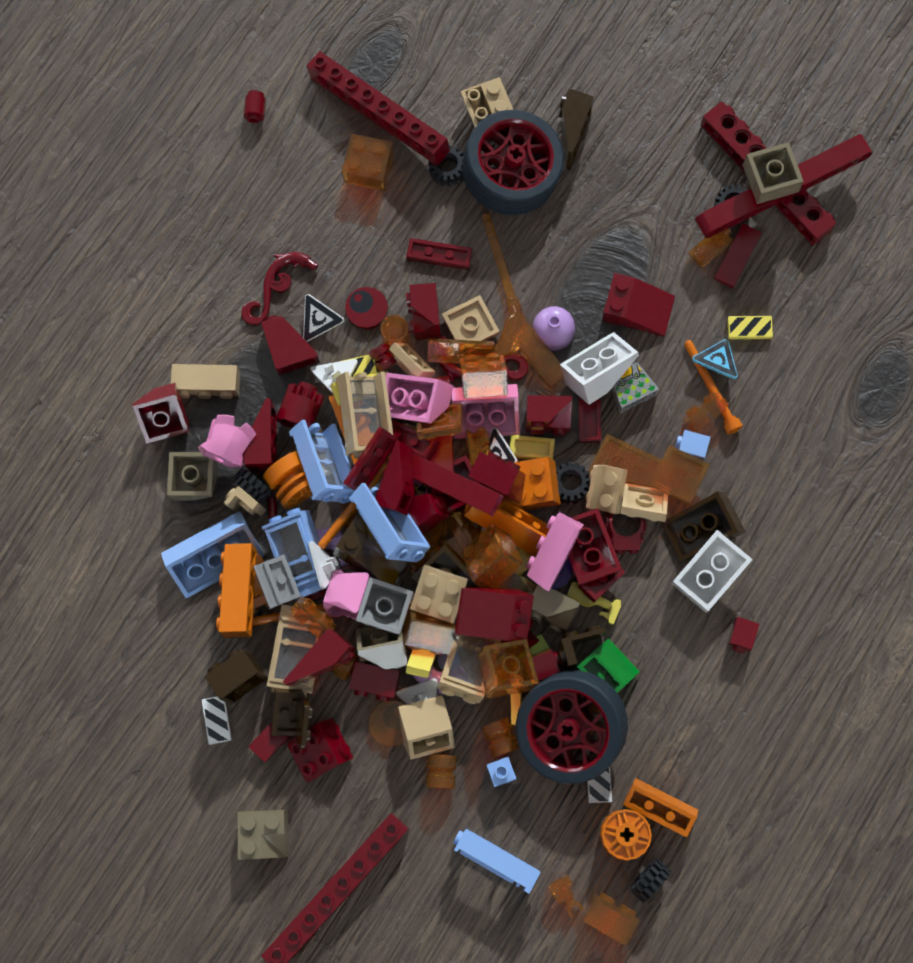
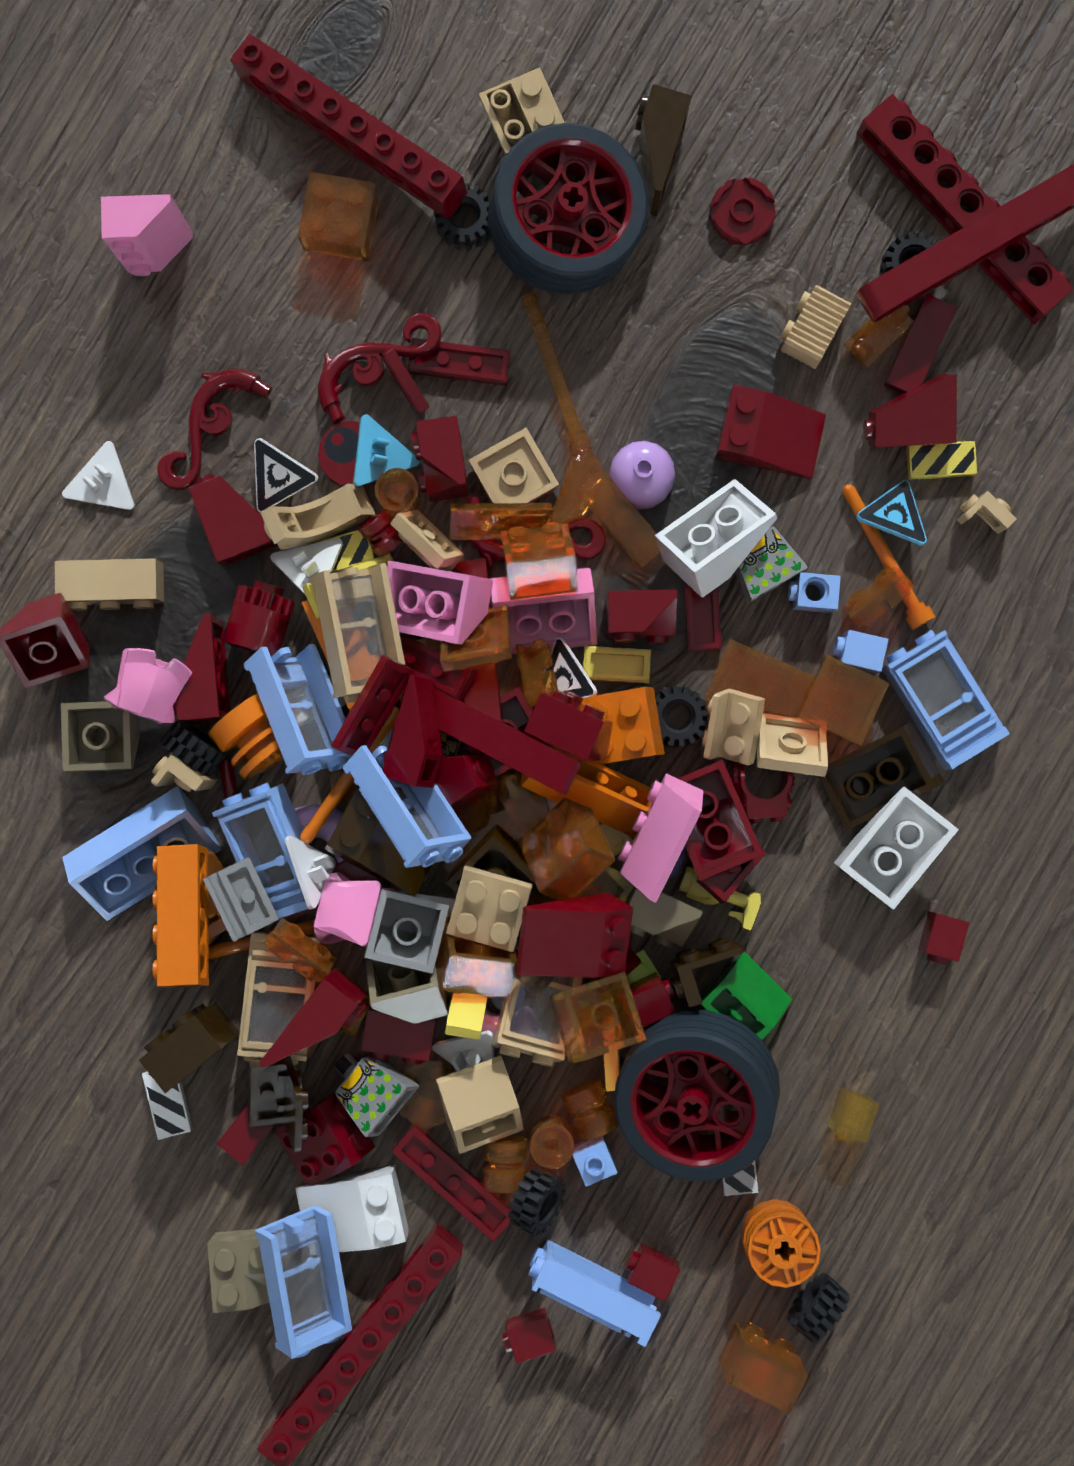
camera: 10 degrees left, 10 degrees up
(205, 318) = (102, 481): none -> white piece
(245, 164) = (143, 231): none -> bright pink slope
(254, 106) = (153, 131): dark red brick -> none
(301, 841) = (304, 1281): none -> door
(335, 800) = (364, 1208): none -> white slope
(342, 346) = (317, 519): none -> tan arch
(354, 718) = (372, 1092): none -> light grey torso
(383, 305) = (378, 453): none -> medium azure piece
(385, 256) = (371, 374): none -> dark red plant
(403, 262) = (404, 380): none -> dark red tile
(405, 784) = (453, 1182): none -> dark red plate
(451, 891) = (529, 1335): none -> dark red brick
(461, 796) = (537, 1201): none -> black tyre
(473, 757) = (551, 1141): none -> clear orange wheel
(536, 851) = (651, 1271): none -> dark red brick
(562, 892) = (690, 1328): clear orange piece -> none
(625, 169) = (742, 211): none -> dark red tile
(660, 807) = (830, 1200): orange brick -> none
(669, 240) = (815, 326): none -> tan brick
(670, 400) = (829, 589): none -> light blue brick
(678, 752) = (852, 1116): none -> clear yellow brick
(732, 299) = (916, 417): none -> dark red slope
(746, 478) = (943, 699): none -> light blue door
(773, 173) = (980, 214): dark tan slope -> none
(781, 359) = (991, 510): none -> tan bracket

